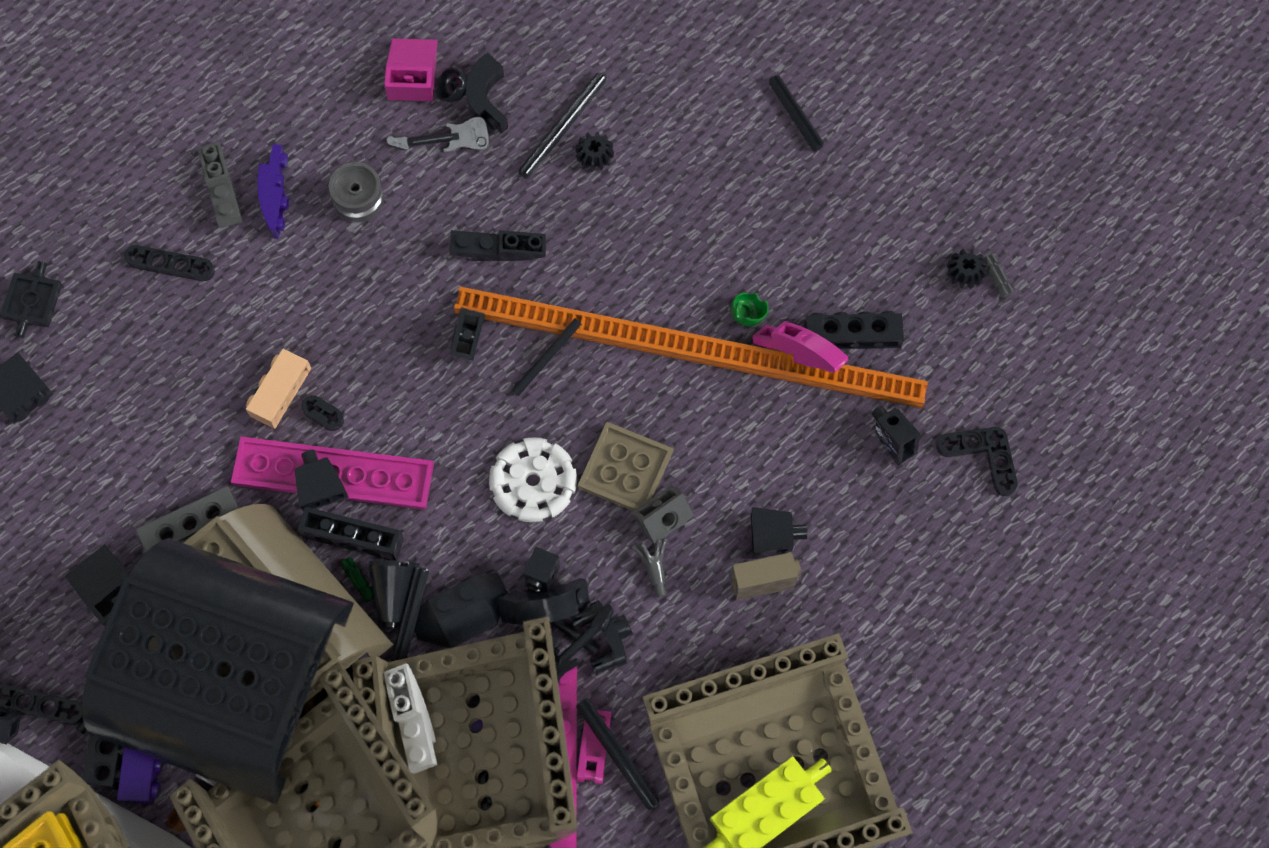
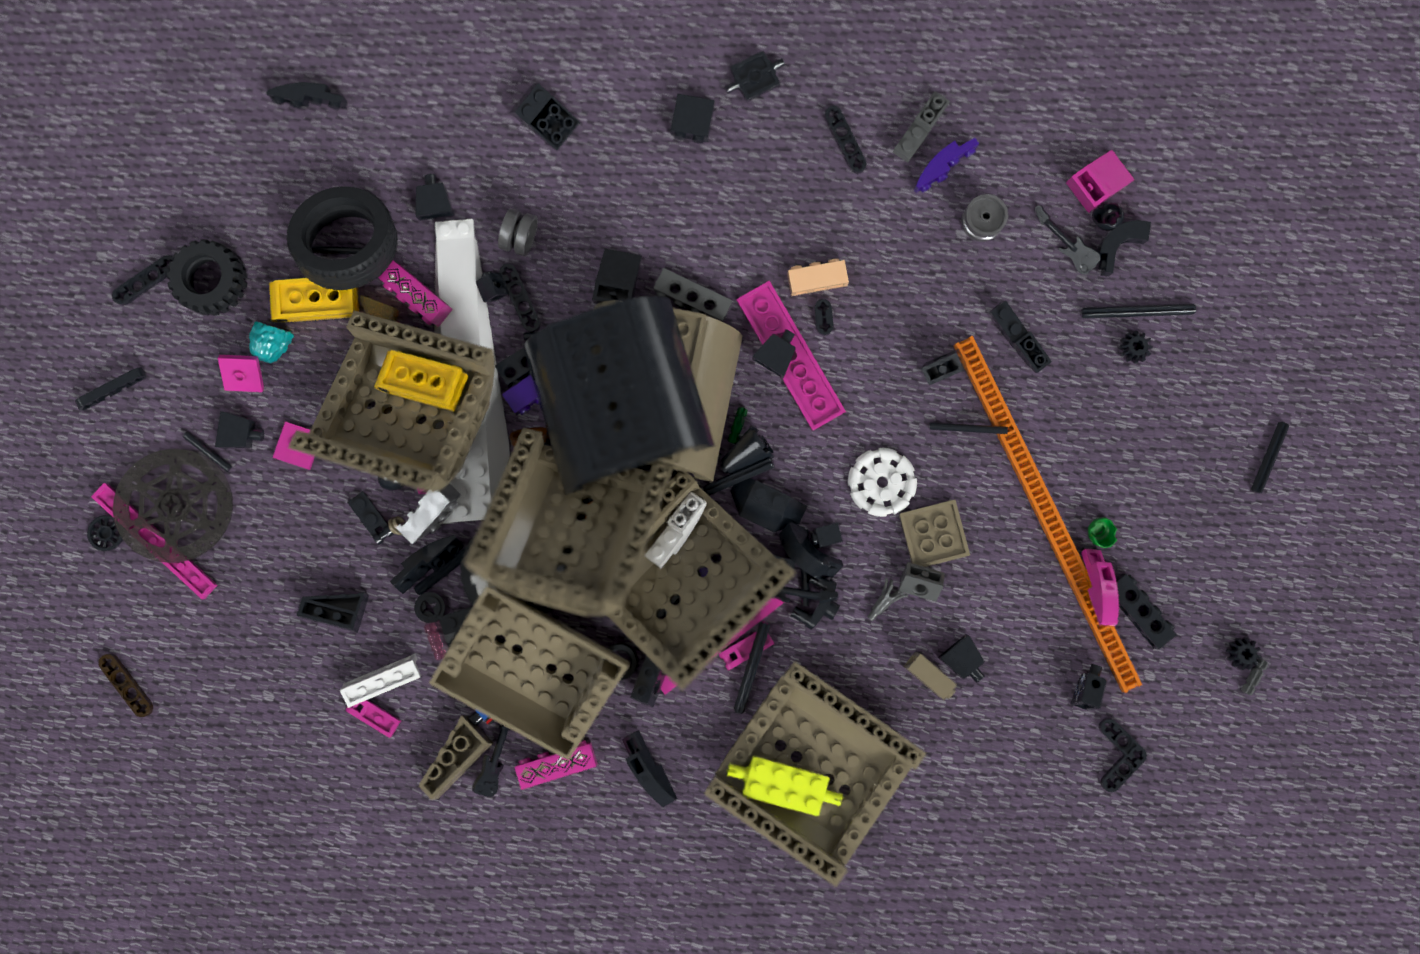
camera: 60 degrees right, 15 degrees up
(350, 534) = (761, 399): black brick -> none

